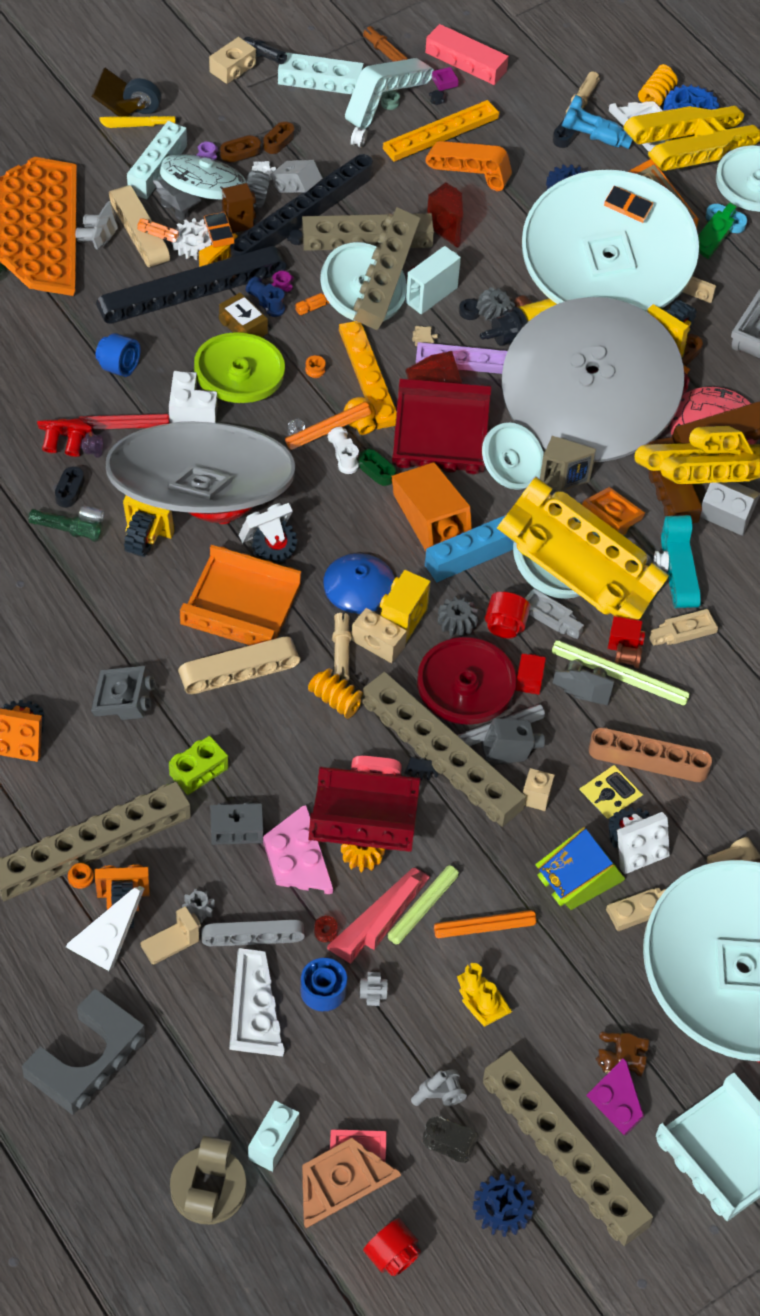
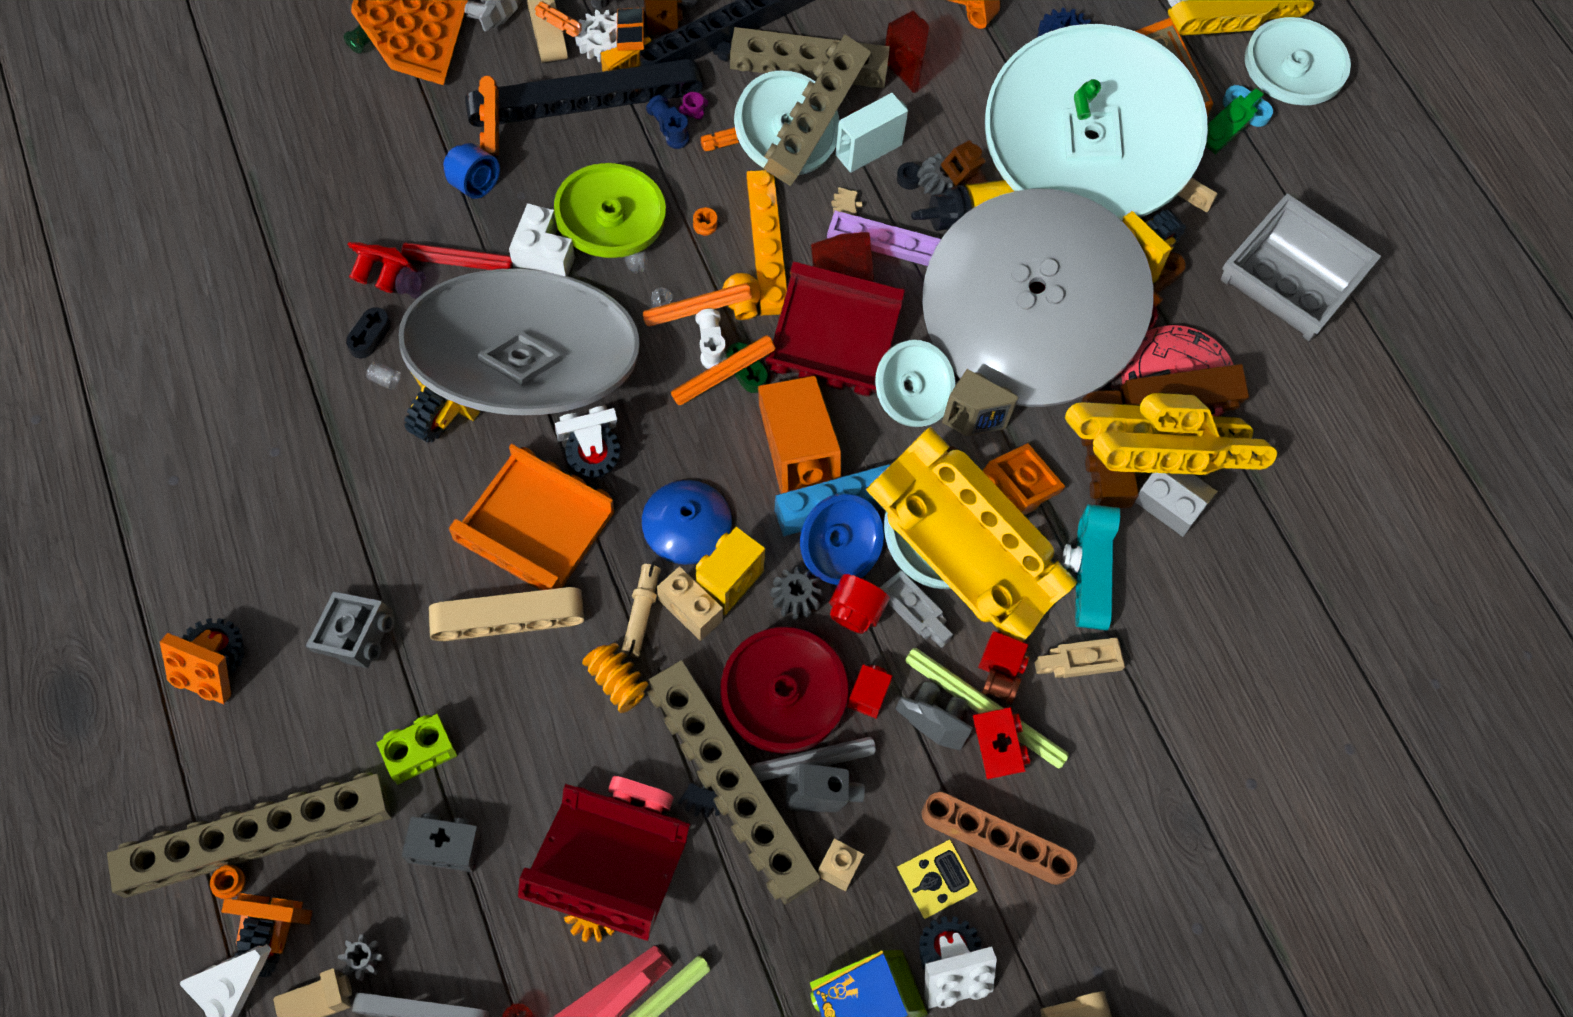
camera: 10 degrees right, 10 degrees up
(75, 526) = (358, 387): clear green pin -> none
(123, 308) = (490, 115): none -> orange hinge
(242, 316) = (632, 144): pearl gold brick -> none
(269, 404) = (637, 261): none -> clear hinge
(295, 858) = (497, 911): bright pink wing -> none
(360, 470) = (723, 370): none -> orange axle
(492, 565) = (856, 538): none -> blue dish
(517, 285) = (969, 157): none -> reddish brown brick
(597, 226) = (1084, 96): none -> green arm
(628, 204) = (1129, 74): black tile -> none
(636, 703) = (990, 725): none -> red brick

